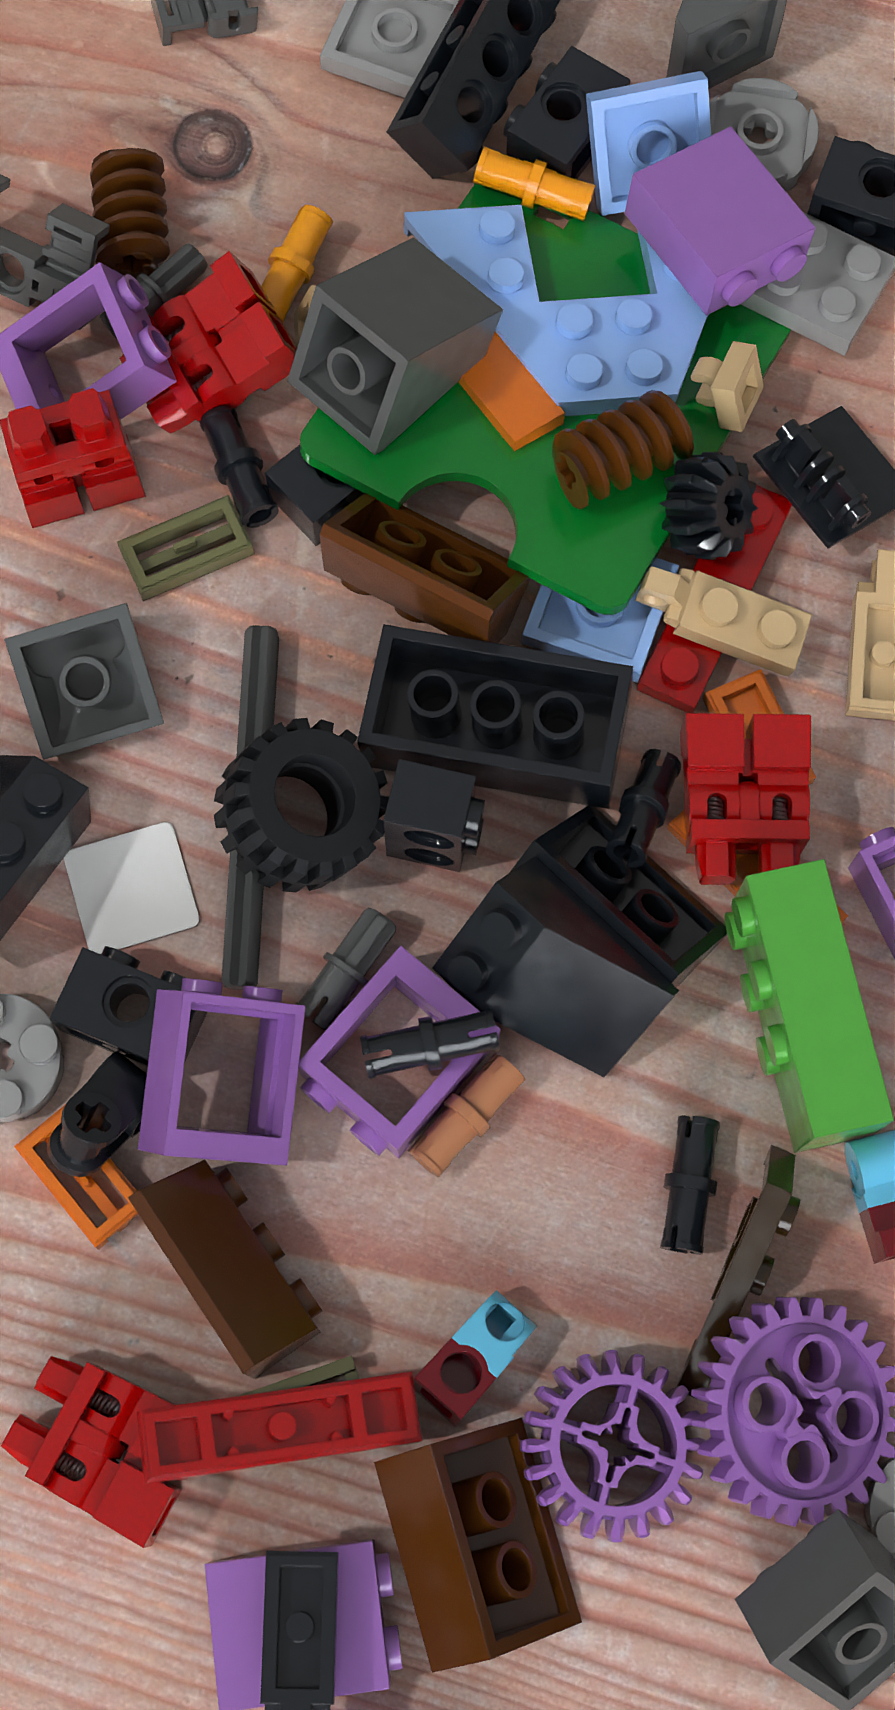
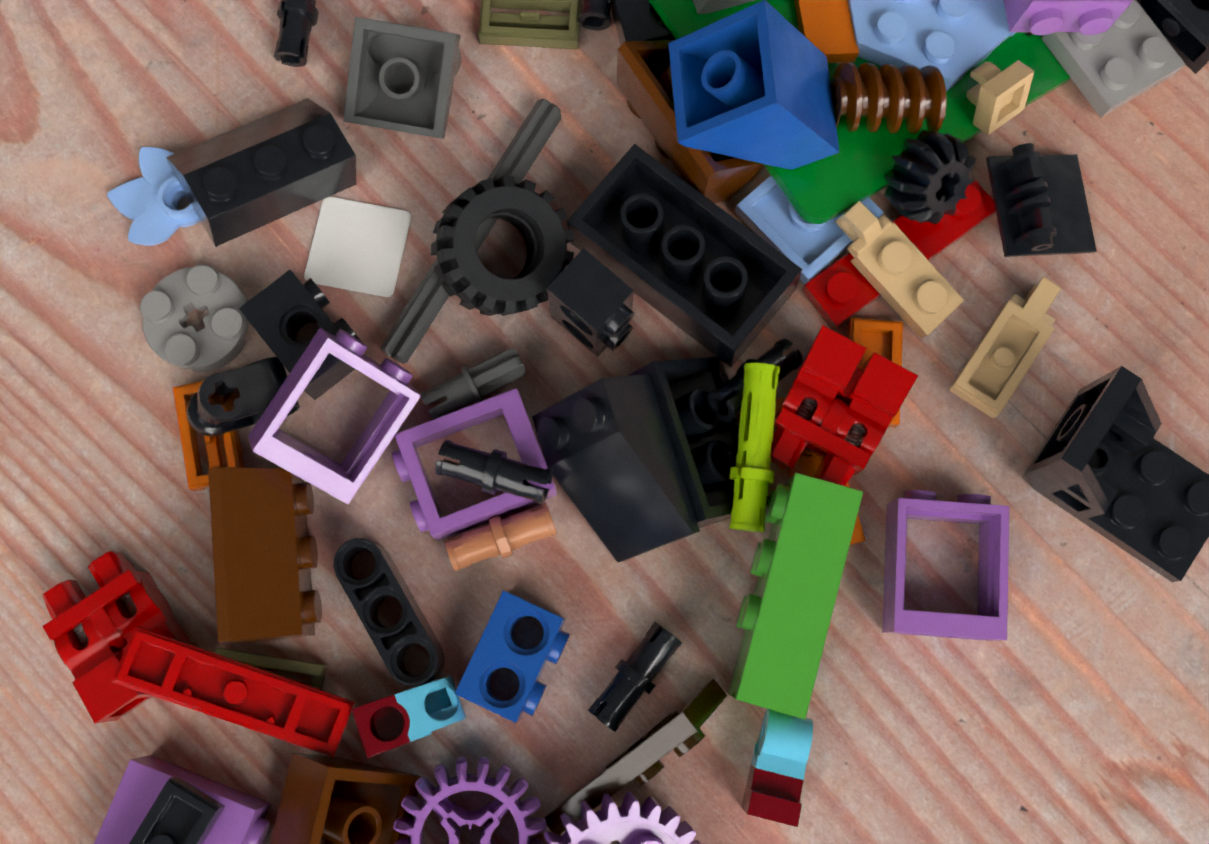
camera: 30 degrees right, 5 degrees up
(369, 1233) = (366, 598): none -> black beam
(487, 509) = (753, 90): none -> blue slope
(535, 1233) = (499, 649): none -> blue brick
(695, 898) = (754, 448): none -> lime pin

